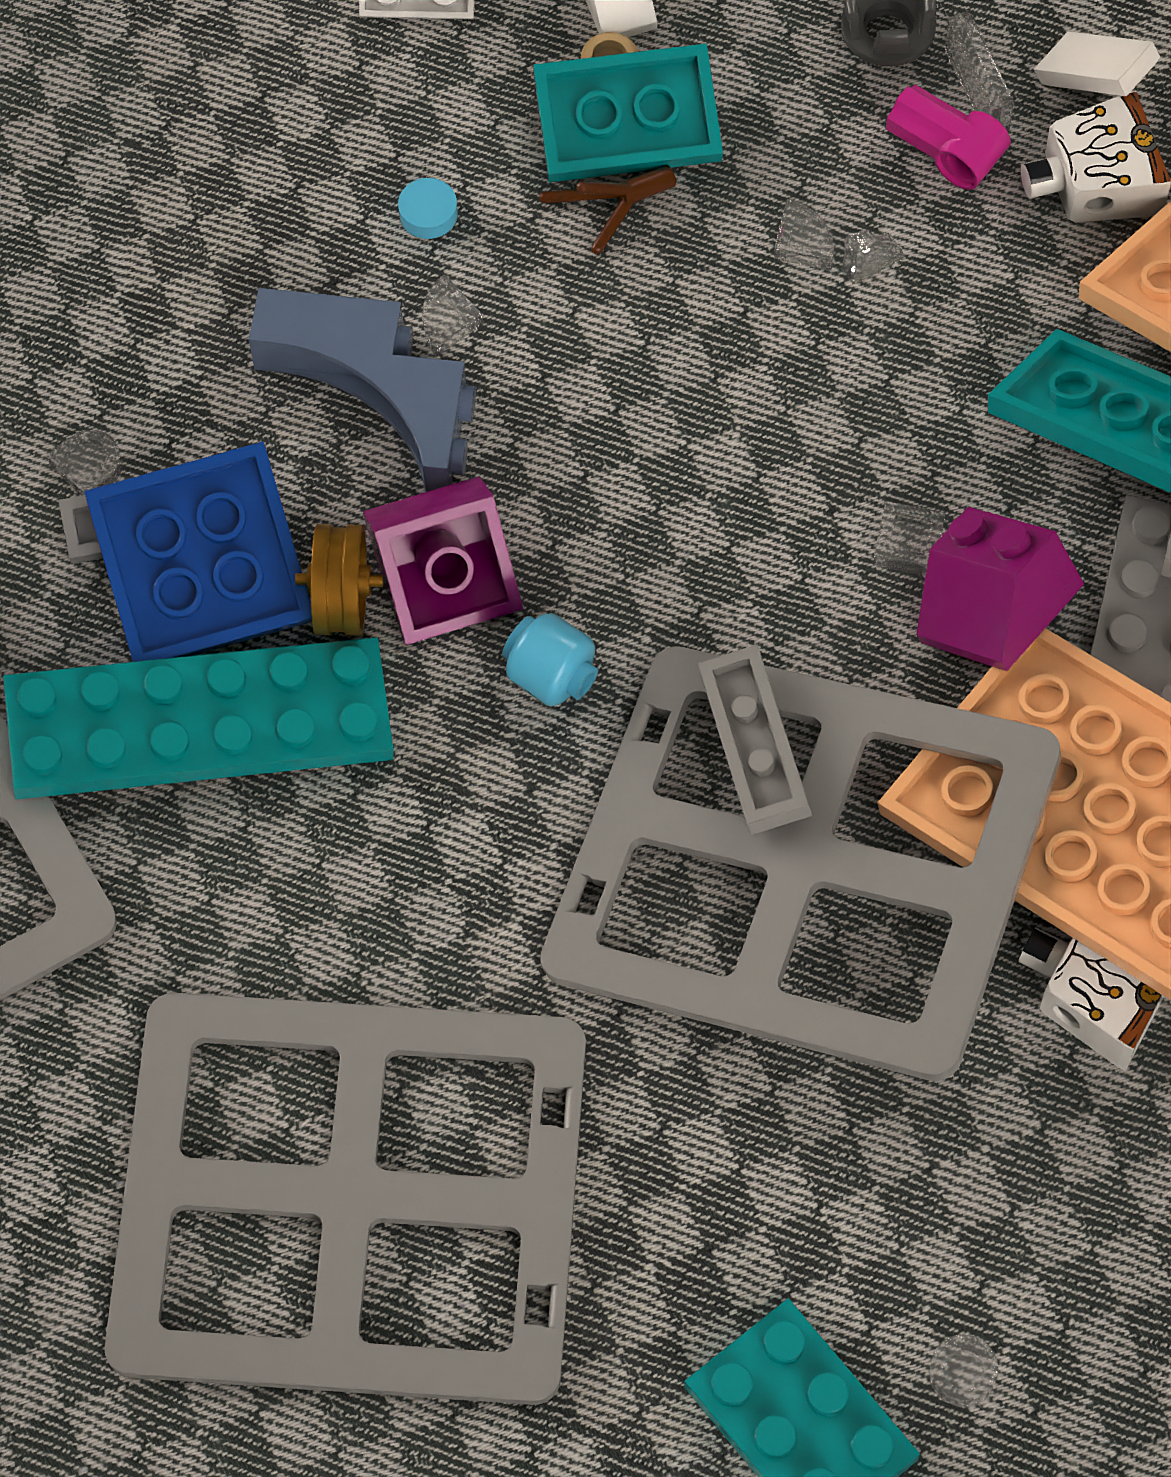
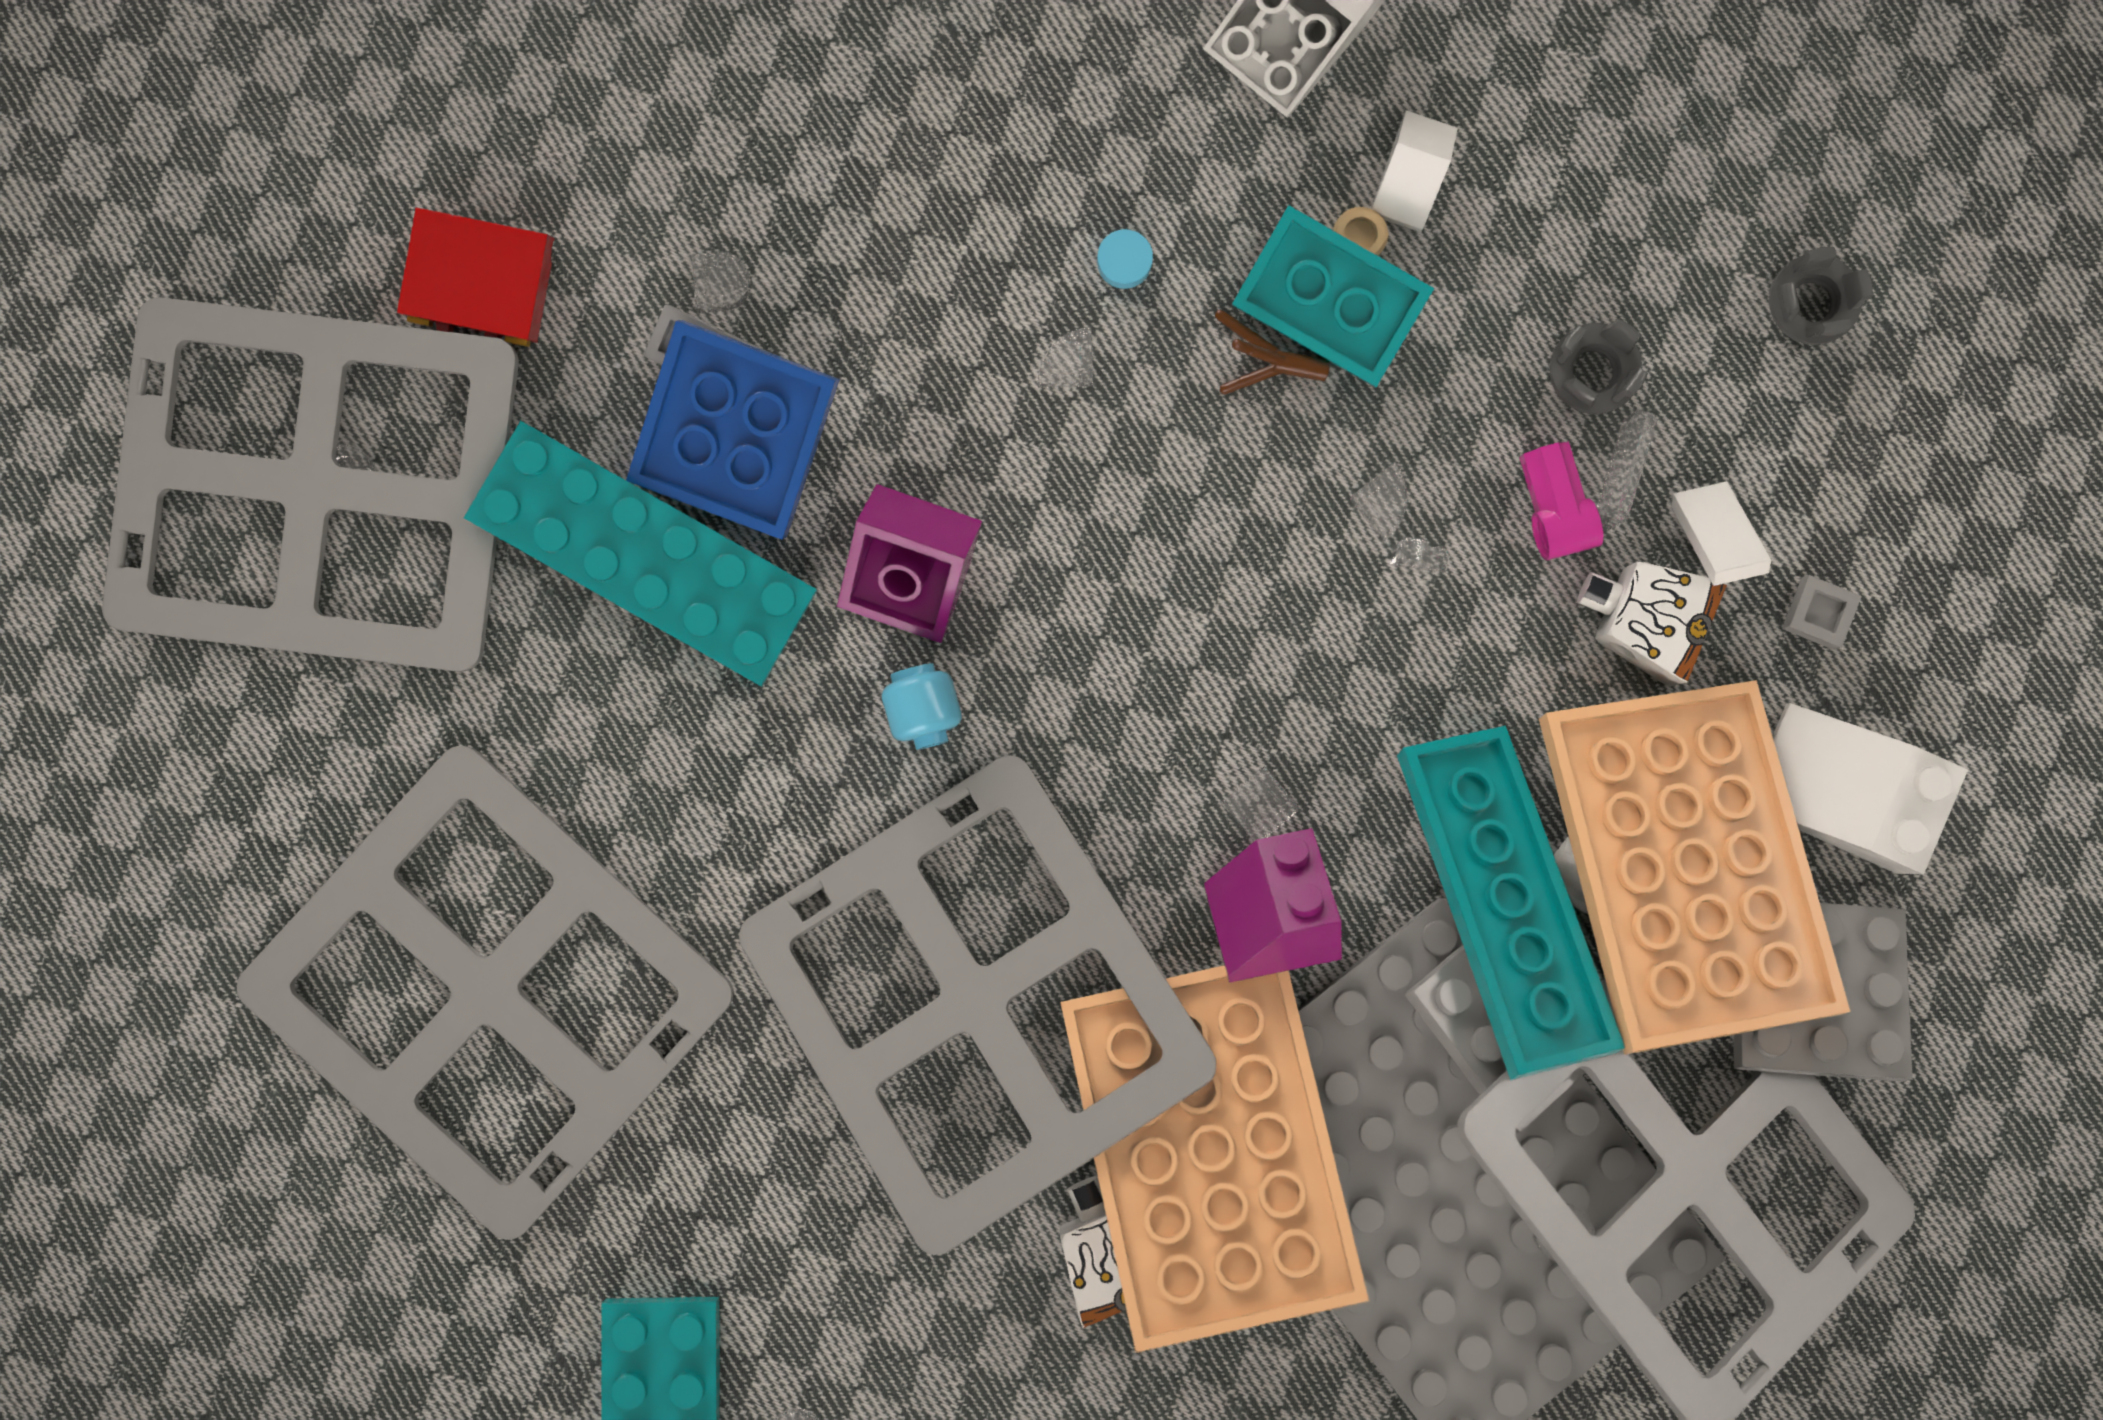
camera: 30 degrees right, 20 degrees up
(339, 579) = (814, 529): pearl gold wheel -> none
(368, 354) = (982, 349): sand blue arch -> none
(754, 740) = (1007, 891): light grey plate -> none

